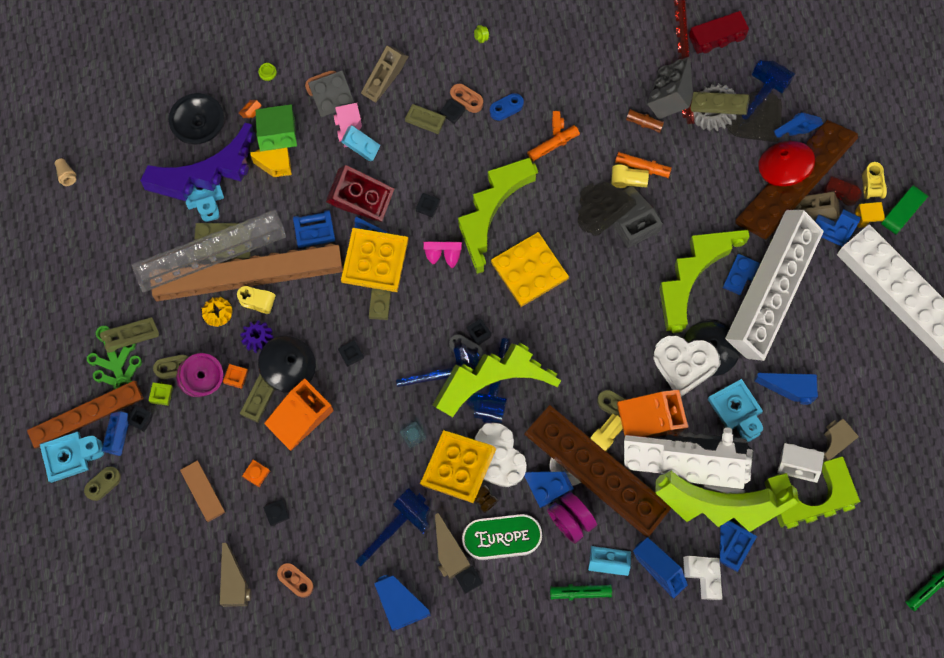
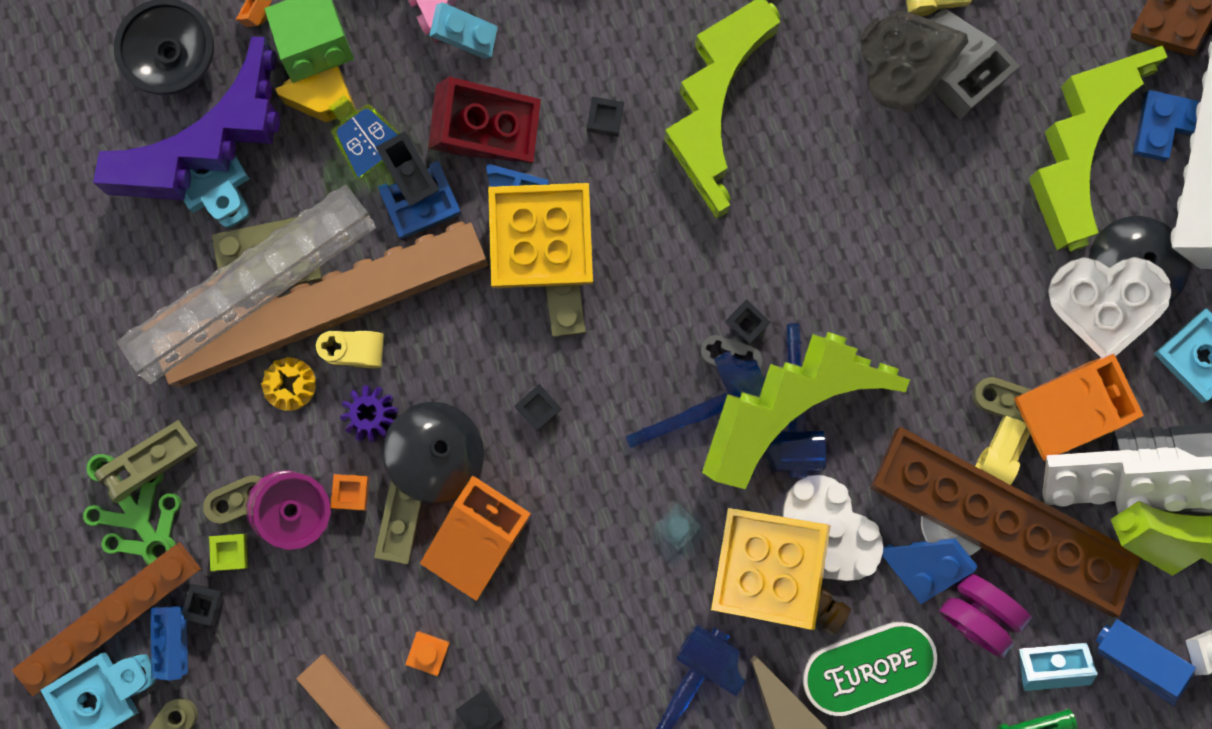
camera: 15 degrees left, 10 degrees up
(291, 187) = (359, 135): none -> blue torso
(310, 209) = (407, 169): none -> black slope
(451, 251) = (665, 189): dark pink tile -> none
(529, 269) = (804, 192): yellow plate -> none

